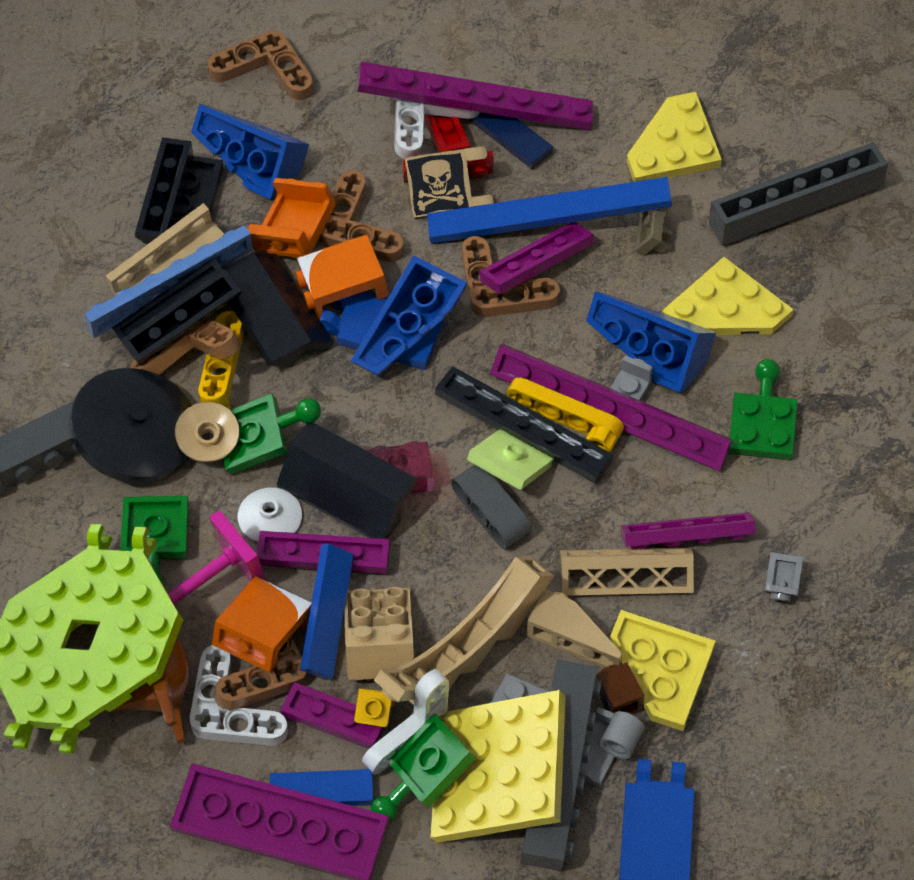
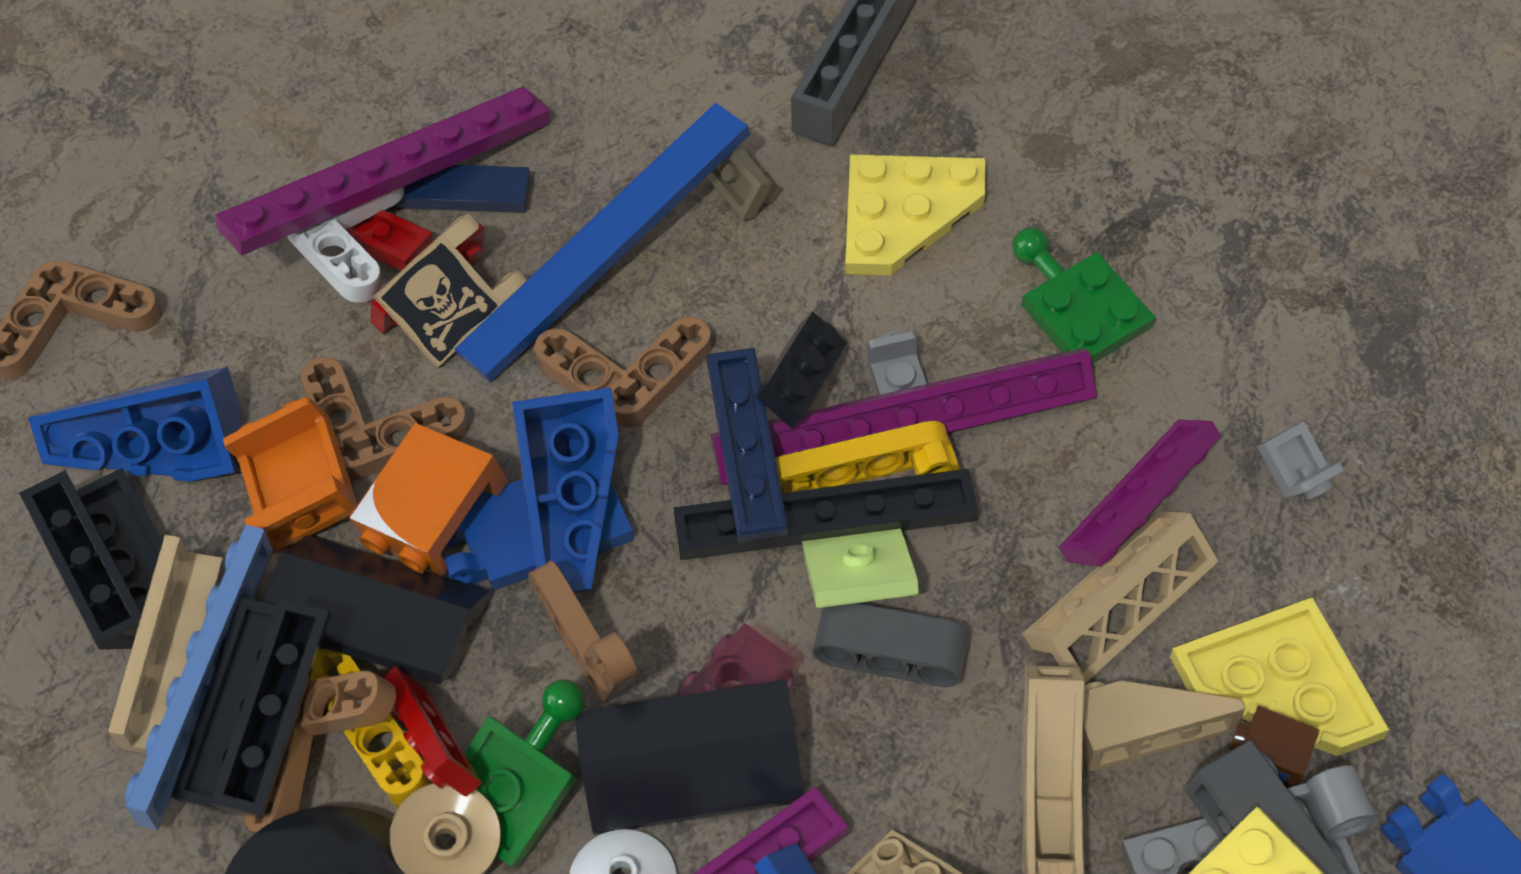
camera: 40 degrees left, 0 degrees up
(240, 381) = (431, 736): none -> red plate
(344, 401) = (602, 661): none -> medium nougat beam
(511, 359) = (746, 446): none -> dark blue tile
(536, 257) = (644, 306): magenta plate -> none
(577, 344) = (801, 369): none -> black plate
(665, 342) = (871, 299): blue wedge -> none
(674, 142) = (663, 71): light yellow plate -> none

